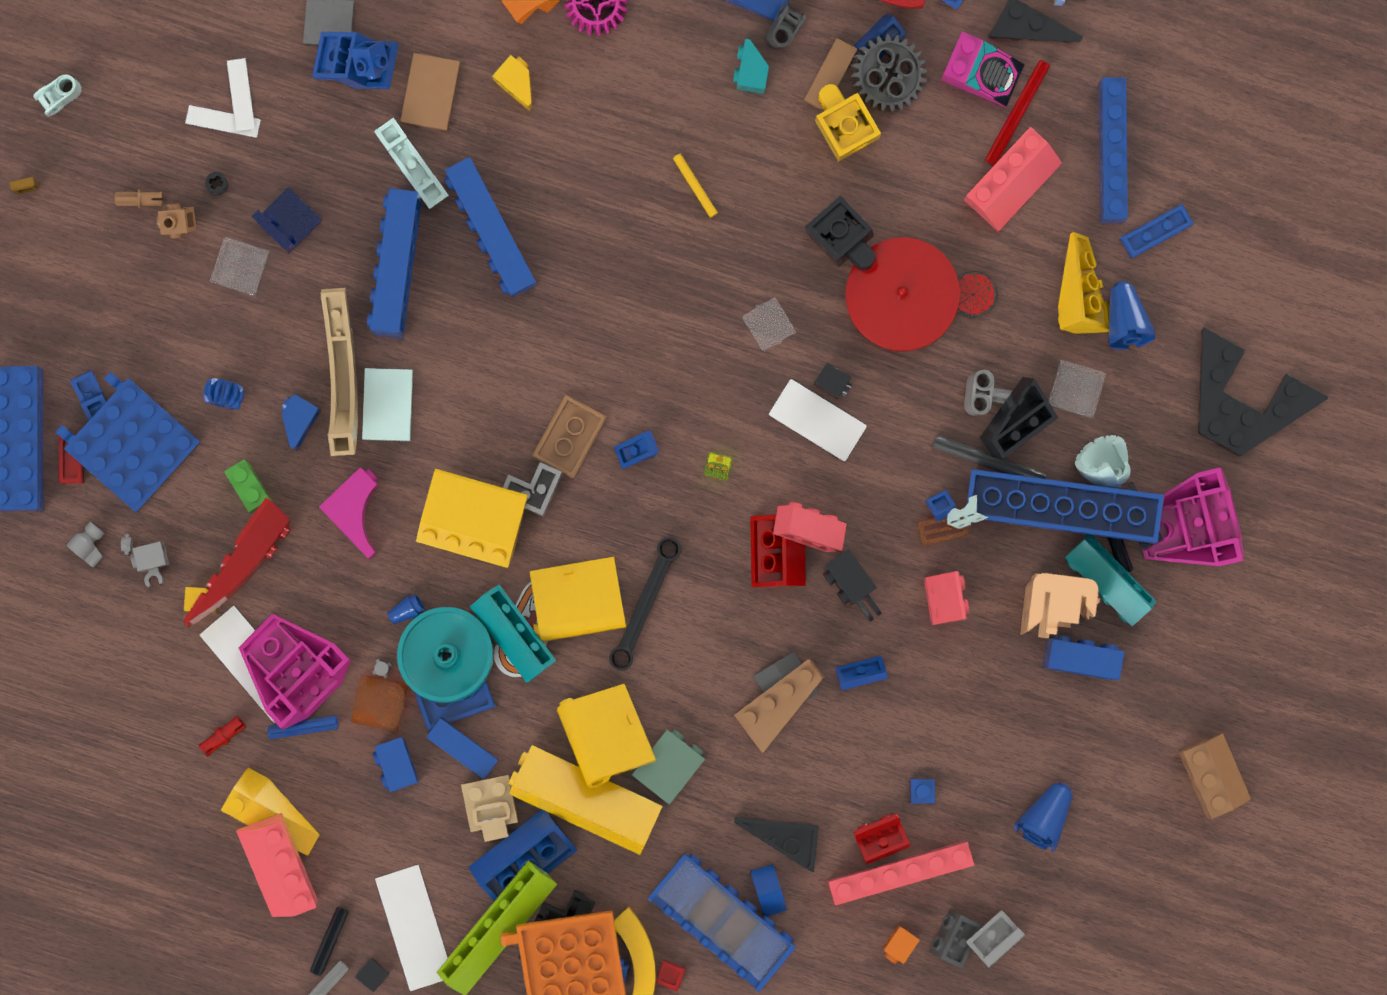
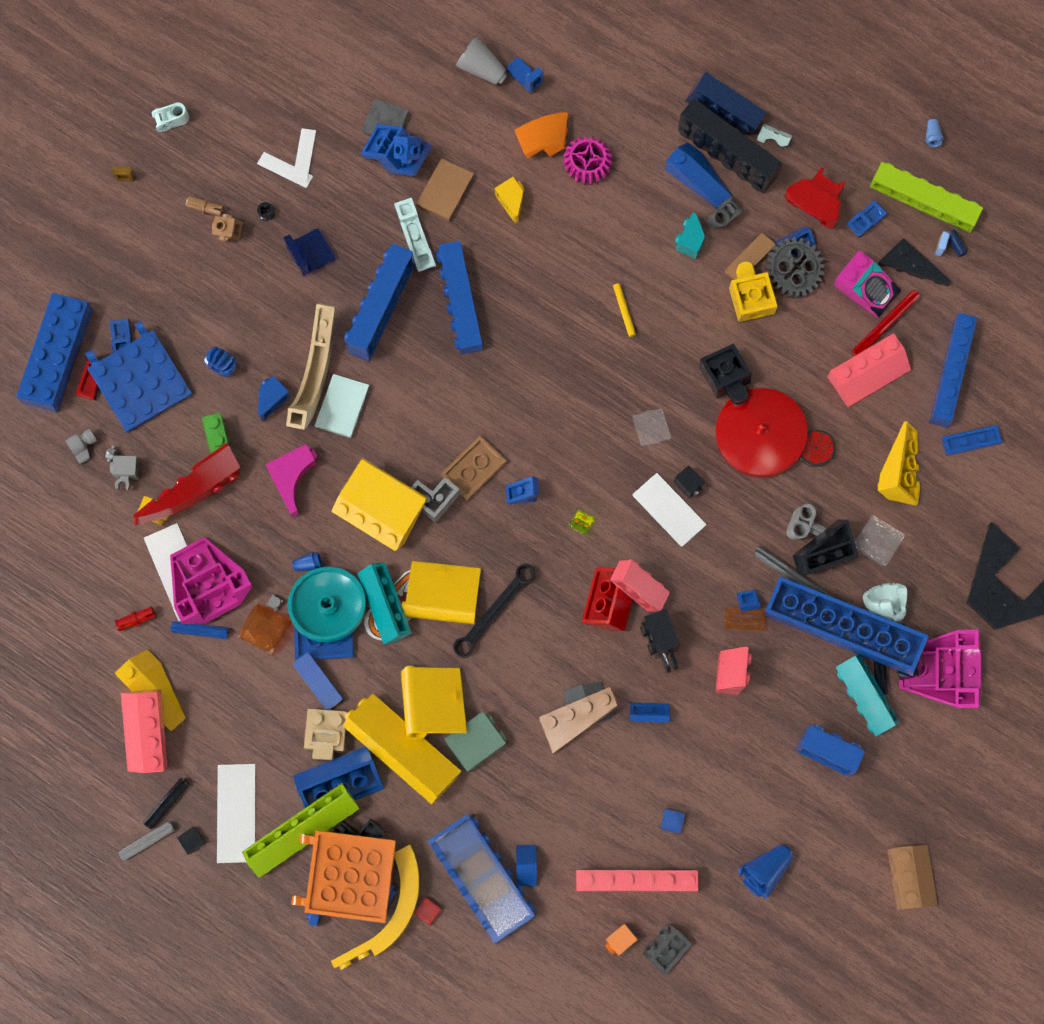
camera: 20 degrees right, 10 degrees down
(240, 266) = (263, 274): clear plate -> none
(396, 764) = (262, 679): blue brick -> none
(791, 839) = (555, 828): black wing -> none
(881, 838) = (629, 848): red bracket -> none
(970, 508) = (770, 605): light aqua piece -> none
(995, 939) = (699, 957): light grey bracket -> none
(1057, 602) = (821, 697): light nougat piece -> none
(1128, 318) = (932, 499): blue cone -> none

